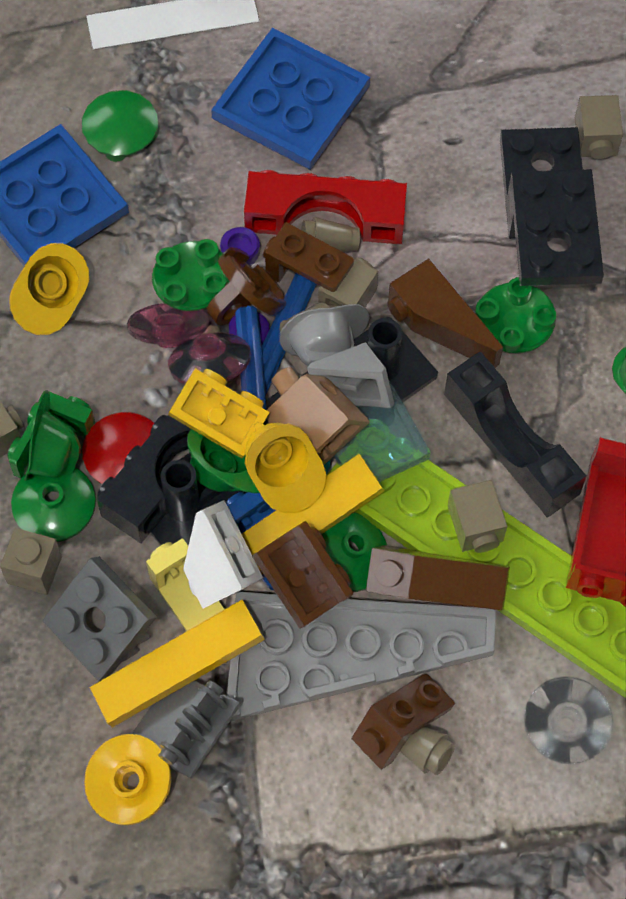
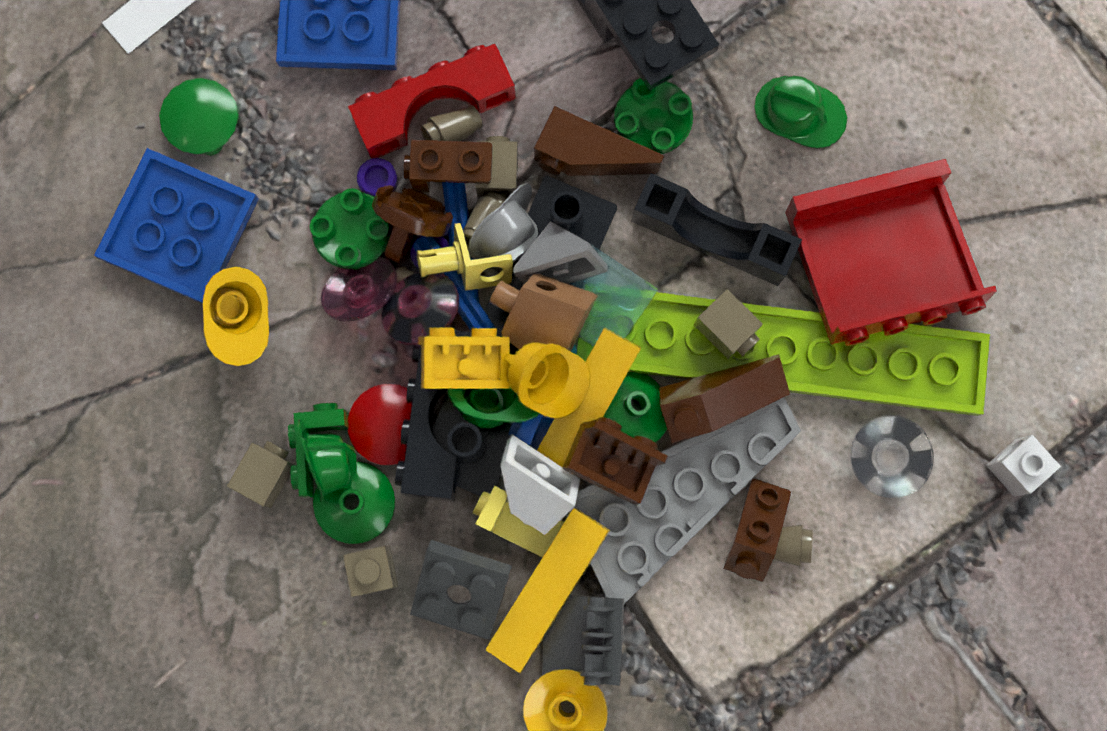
camera: 30 degrees left, 15 degrees up
(265, 335) = (458, 258): none -> light yellow bracket

